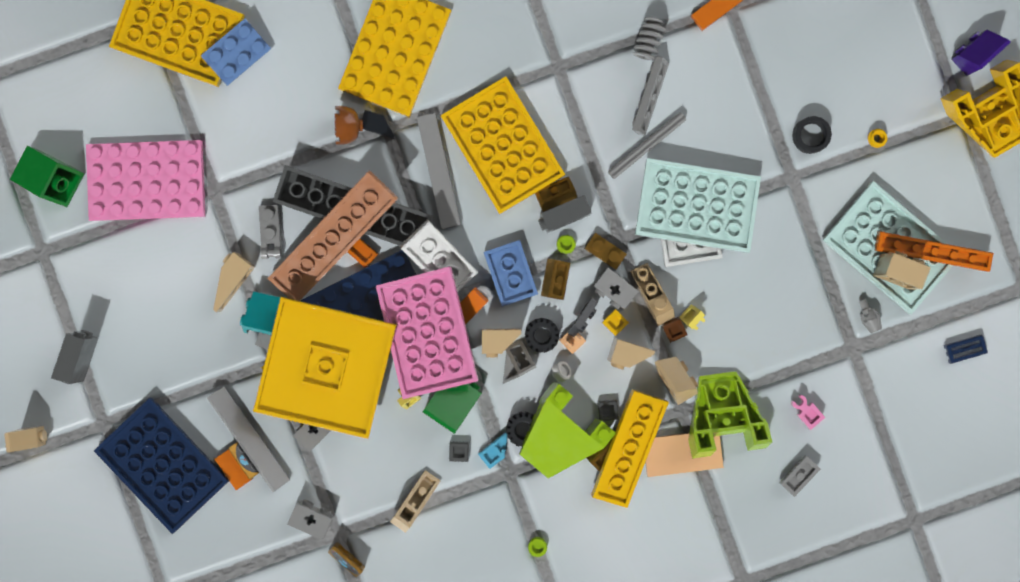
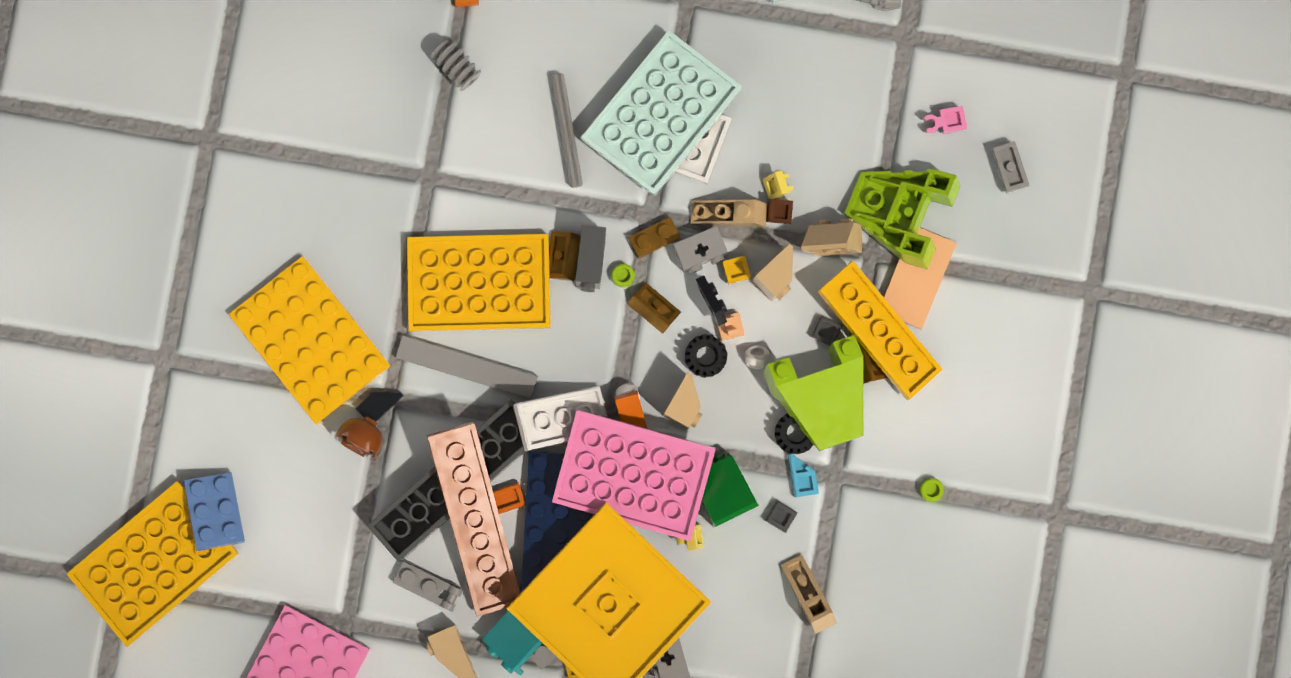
camera: 70 degrees left, 5 degrees down
(510, 273) = (620, 351): medium blue plate -> none
(517, 362) = (720, 398): light grey slope -> none
(648, 101) = (515, 95): light grey plate -> none

